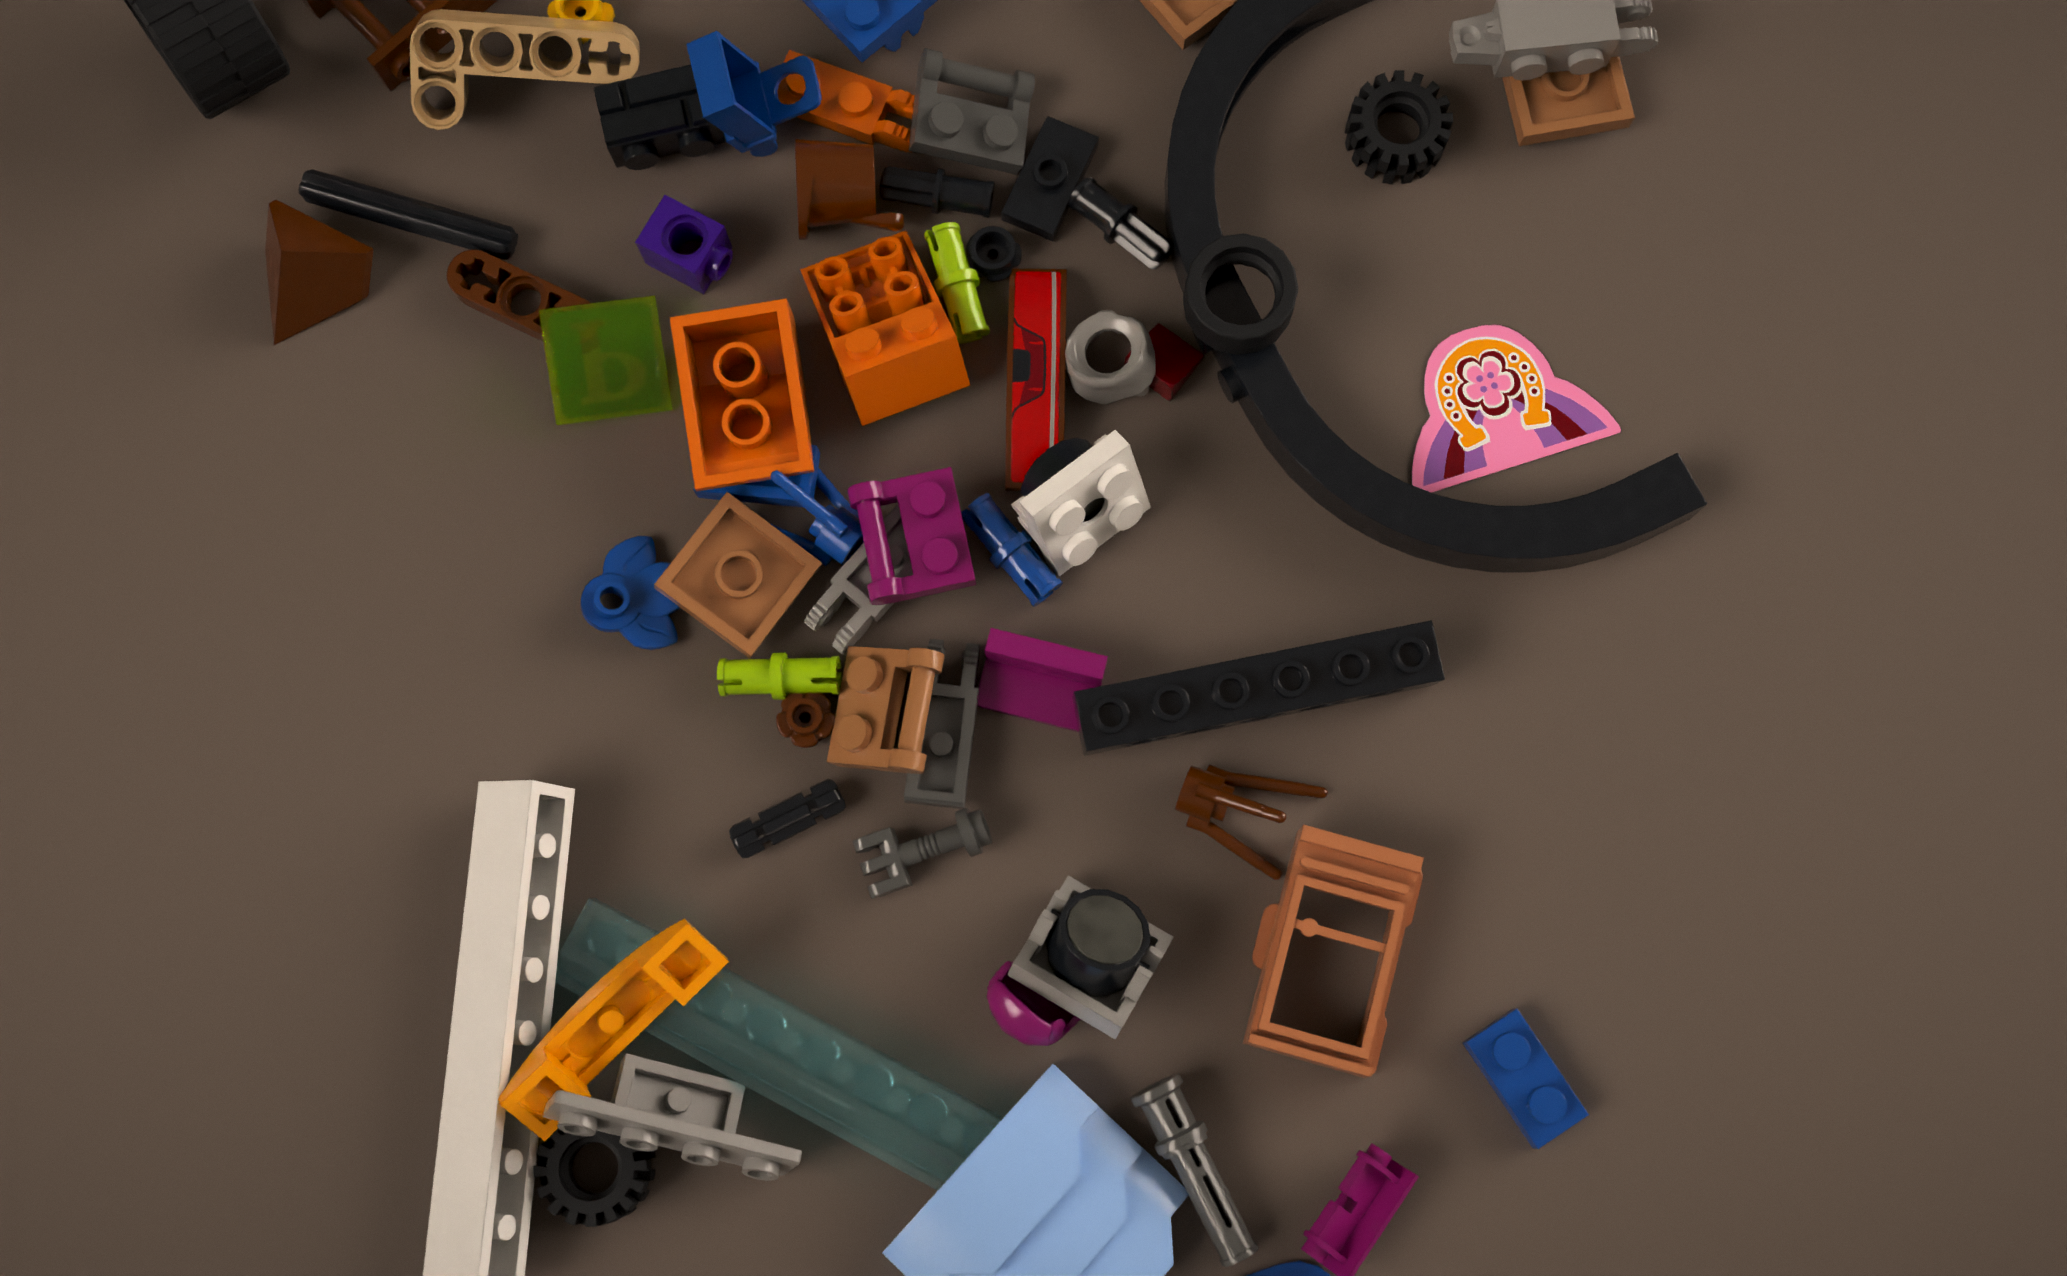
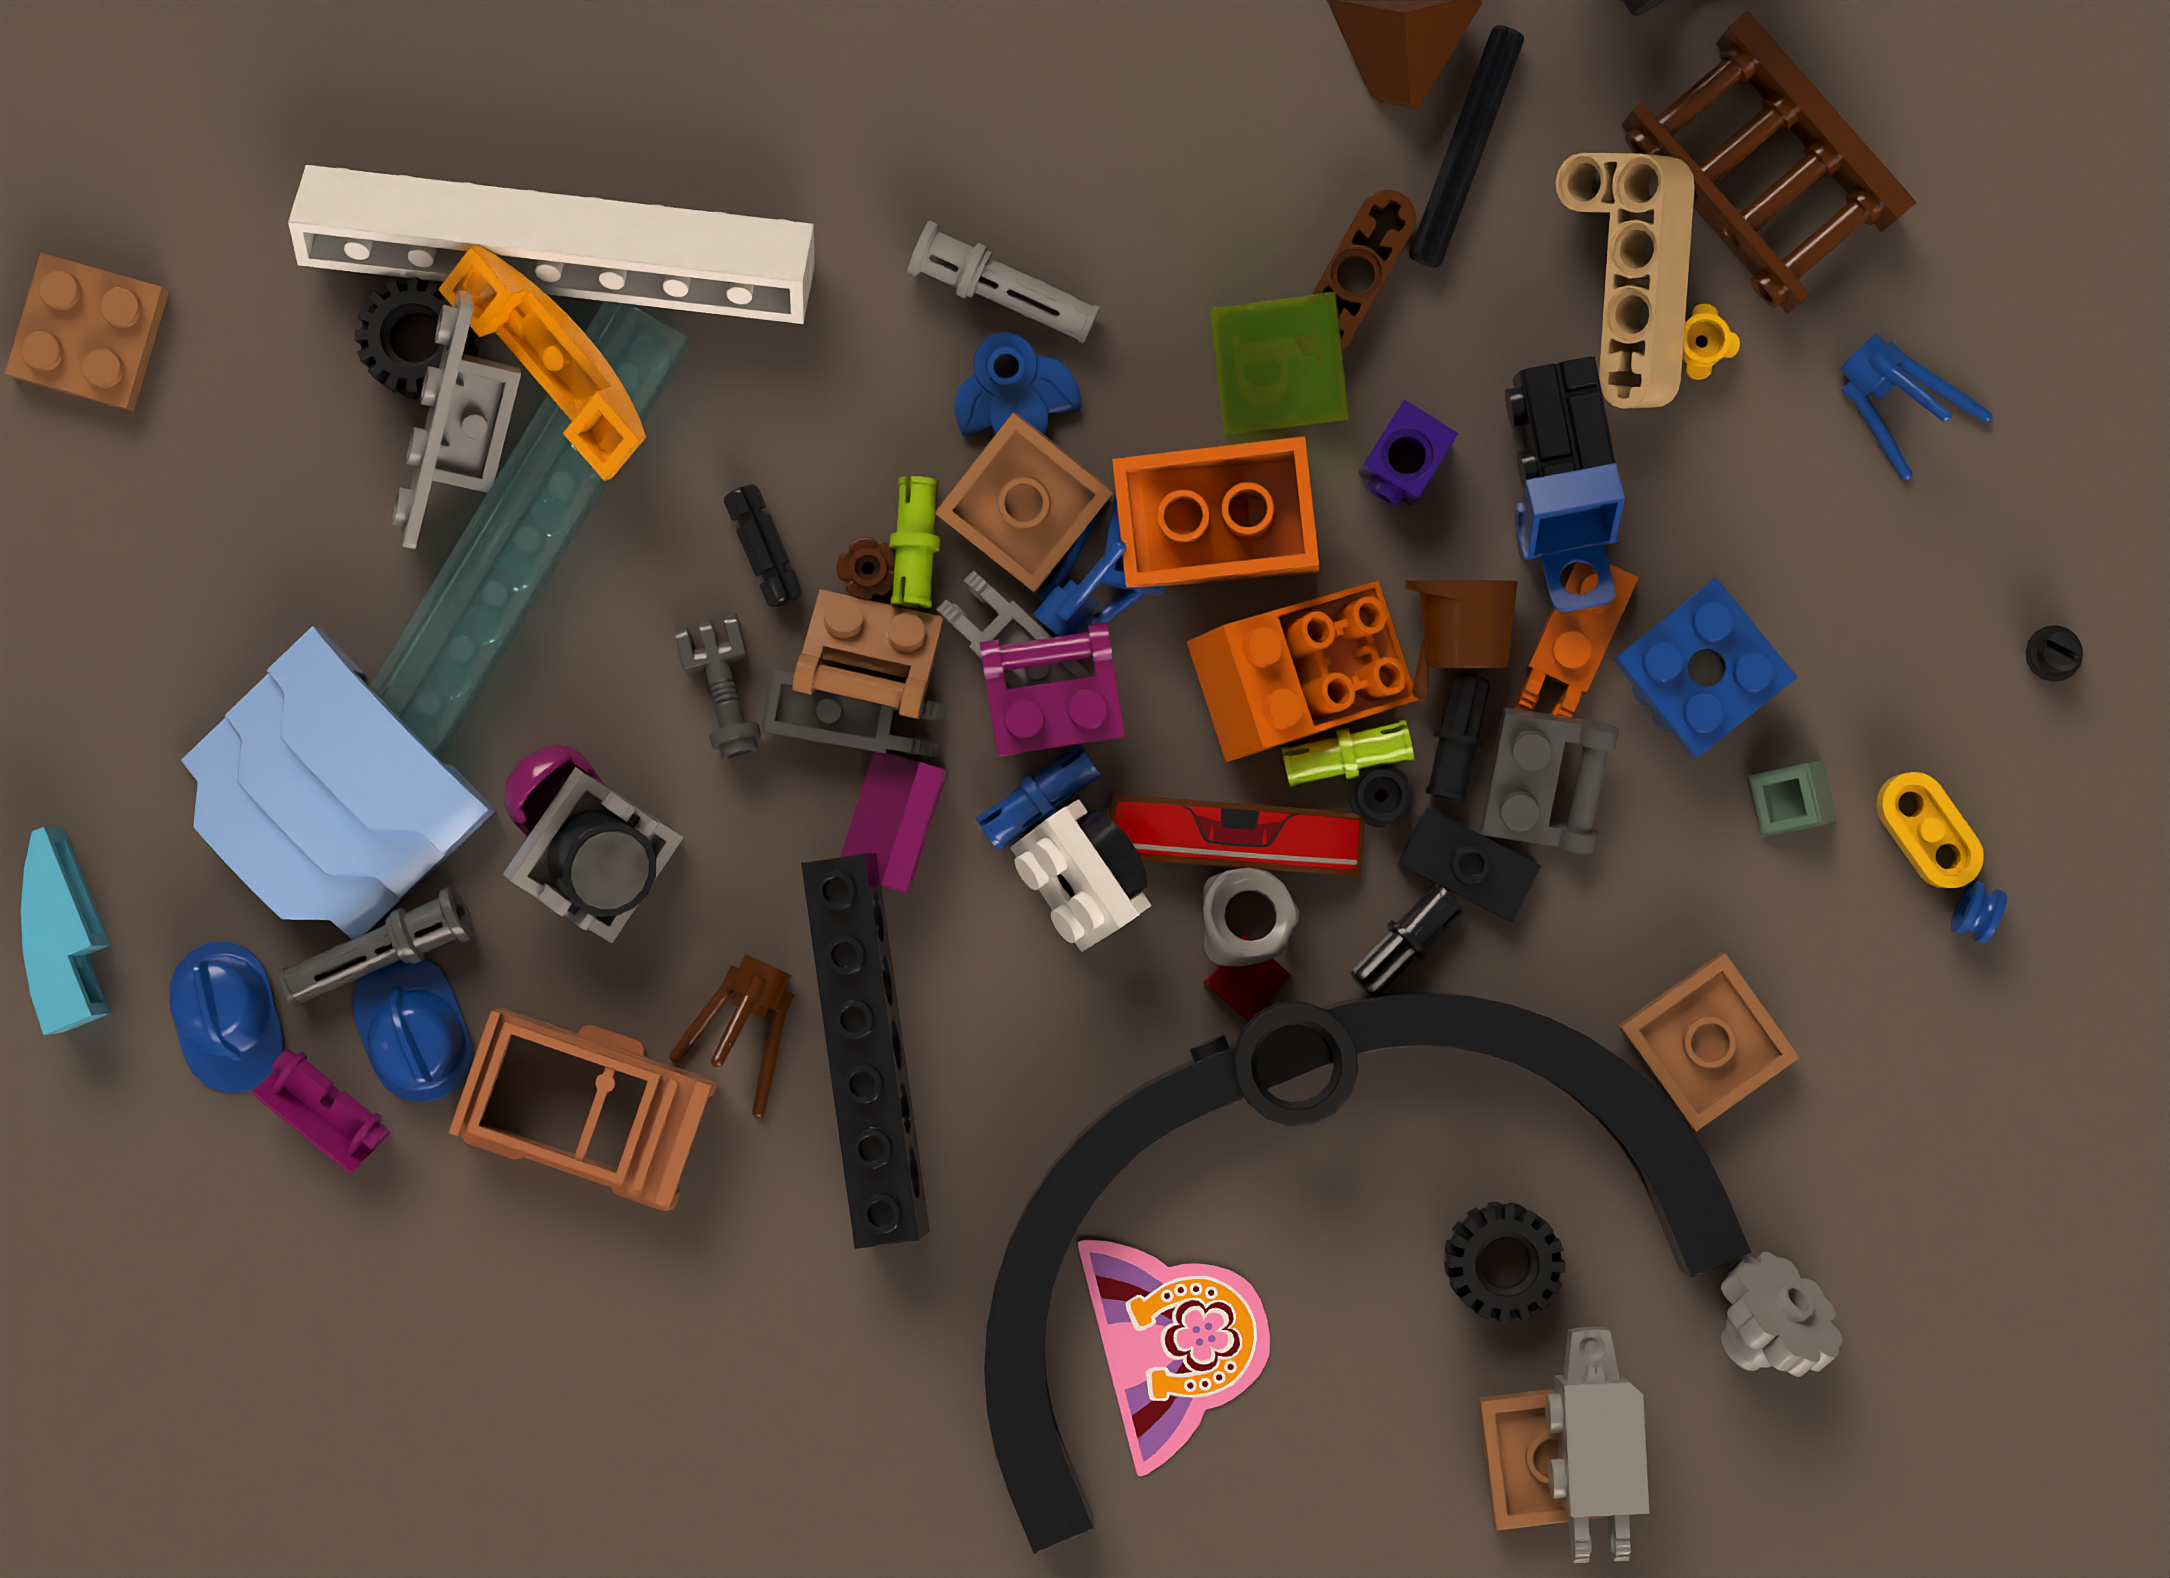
camera: 90 degrees right, 10 degrees up
(515, 635) = (974, 272): none -> light grey pin
(1271, 1130) = (413, 1030): none -> blue piece
(1525, 1078) = (447, 1296): blue plate -> none

